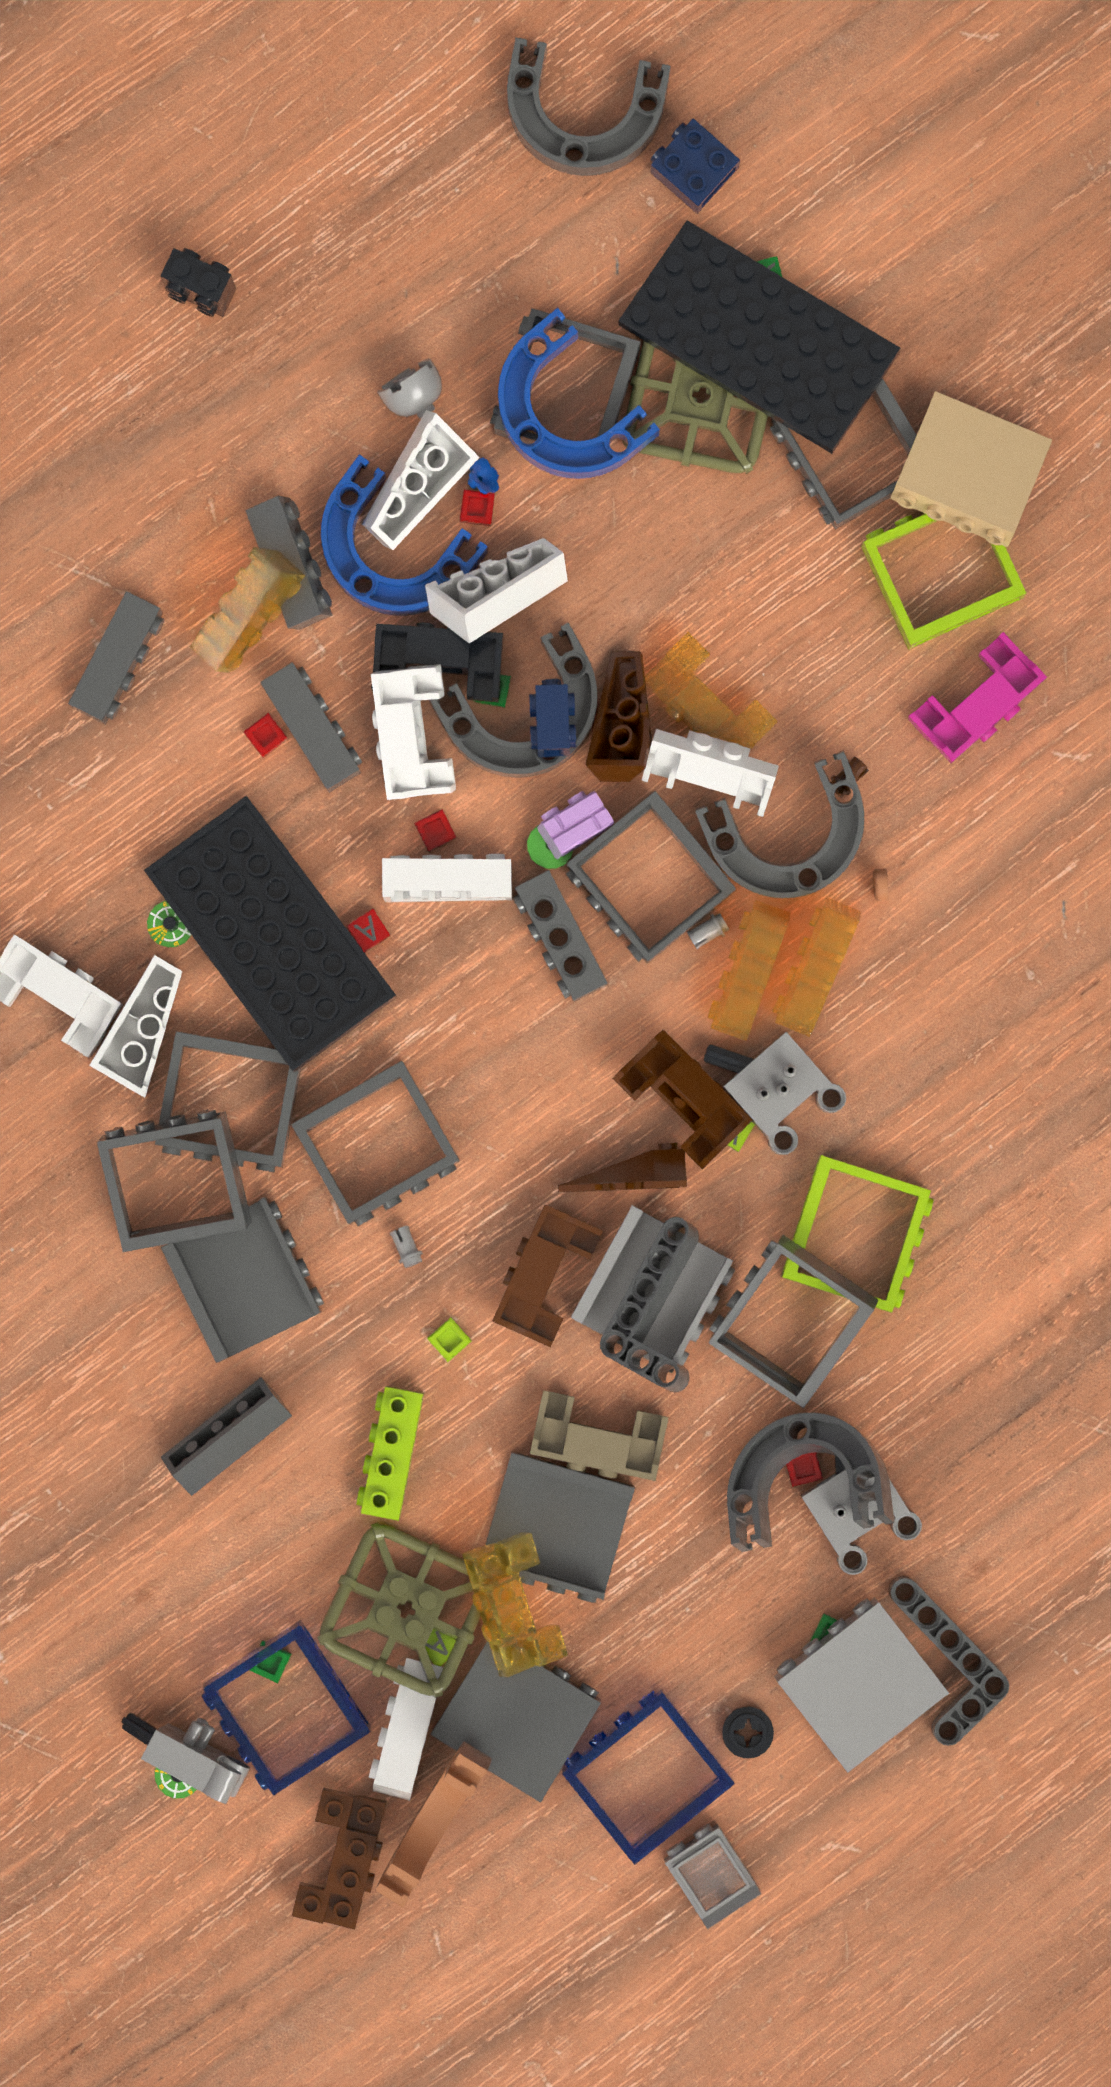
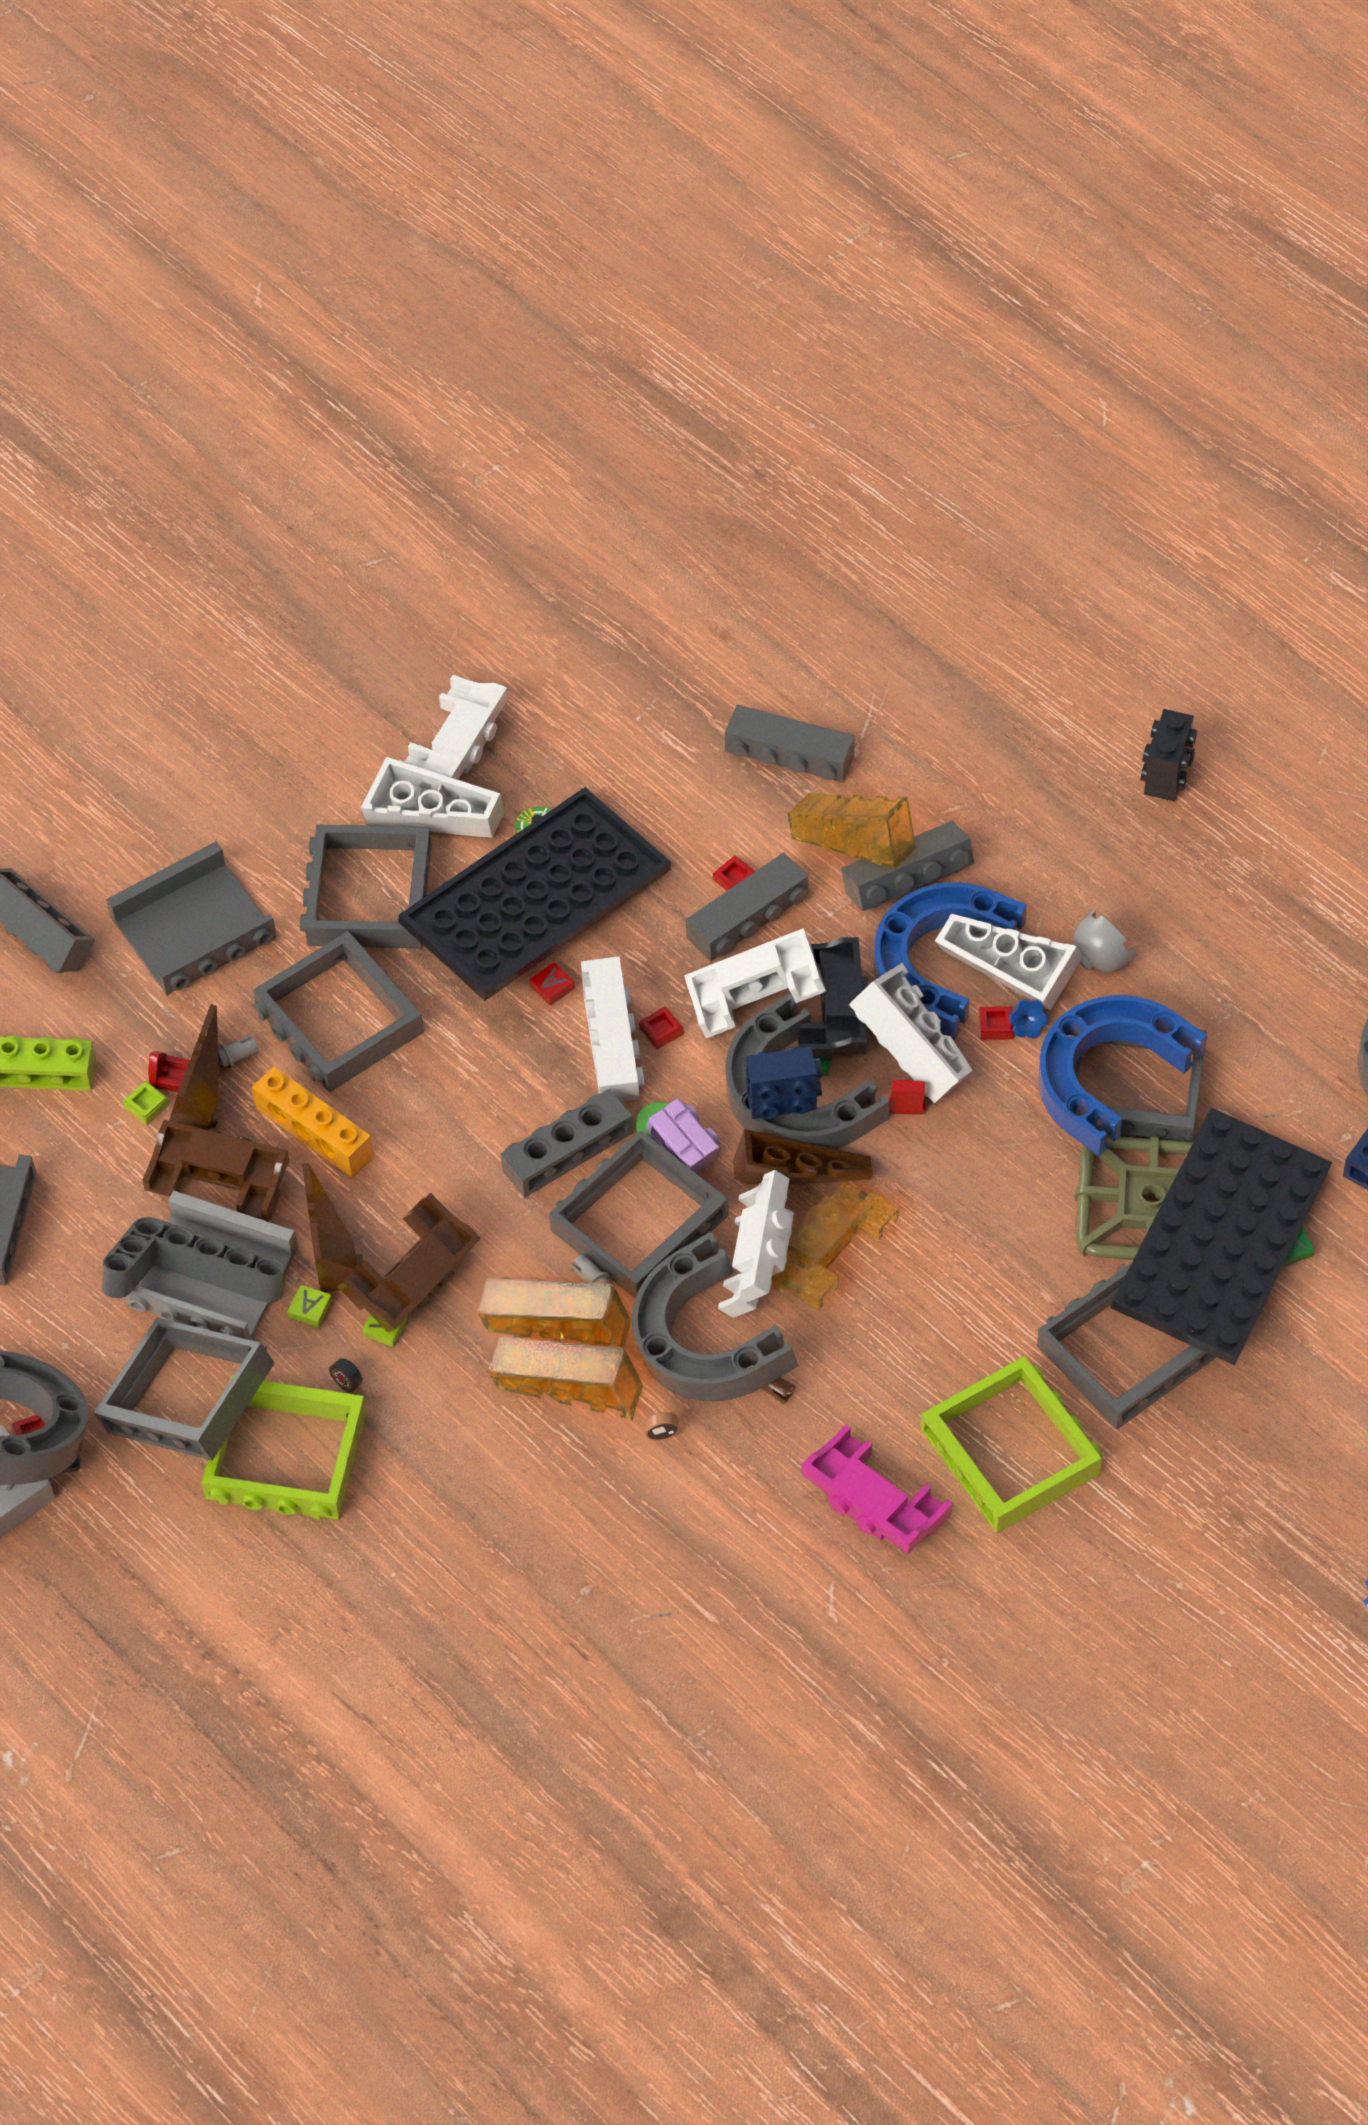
camera: 80 degrees right, 30 degrees down
(185, 1230) = (299, 878): dark grey window -> none
(419, 1311) = (166, 1071): none -> red tile
(449, 1285) = (200, 1085): none -> reddish brown wedge
(503, 1178) = (313, 1122): none -> light orange brick
(552, 606) = (907, 1097): none -> red tile
(596, 1447) = (42, 1234): dark tan bracket -> none
(702, 1199) = (309, 1306): none -> lime tile
(774, 1085) = (433, 1353): light grey piece -> none
(786, 1170) = (345, 1374): none -> black tile
(971, 469) = (1123, 1443): tan panel -> none

